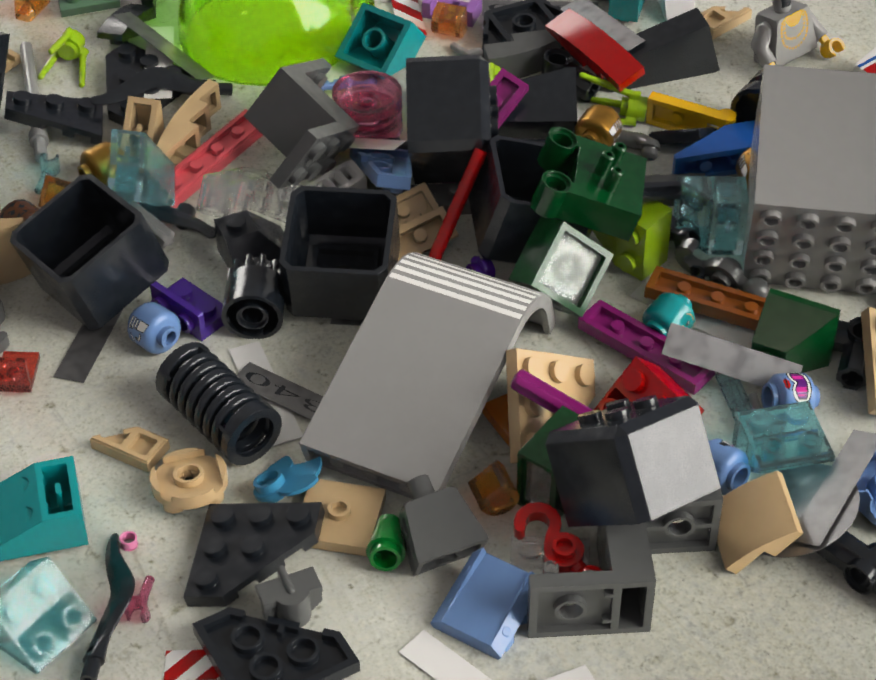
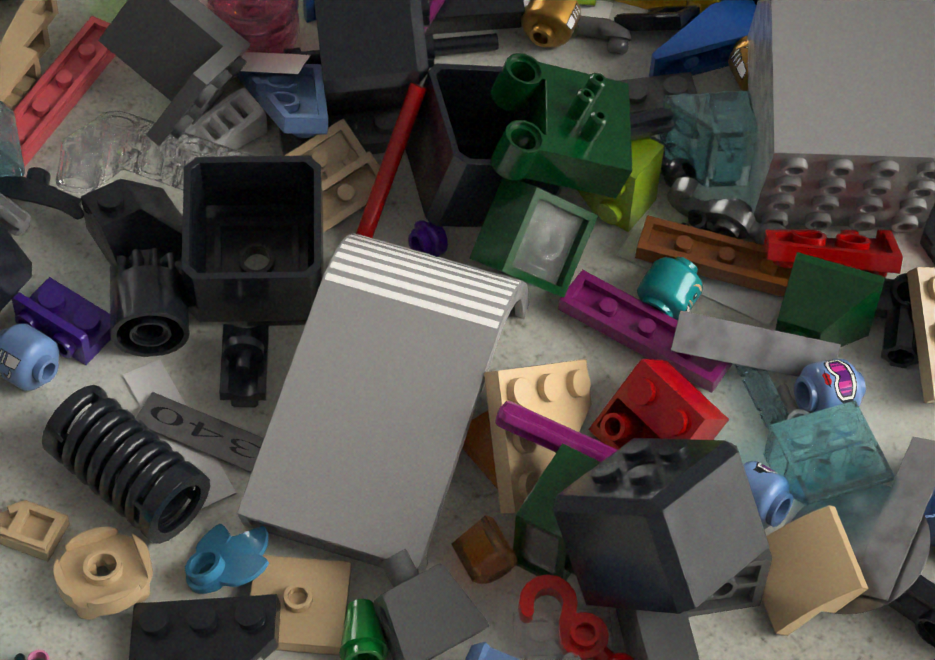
camera: 10 degrees left, 10 degrees up
(322, 346) = (244, 365): none -> black hips
(847, 303) = (872, 255): none -> red wing

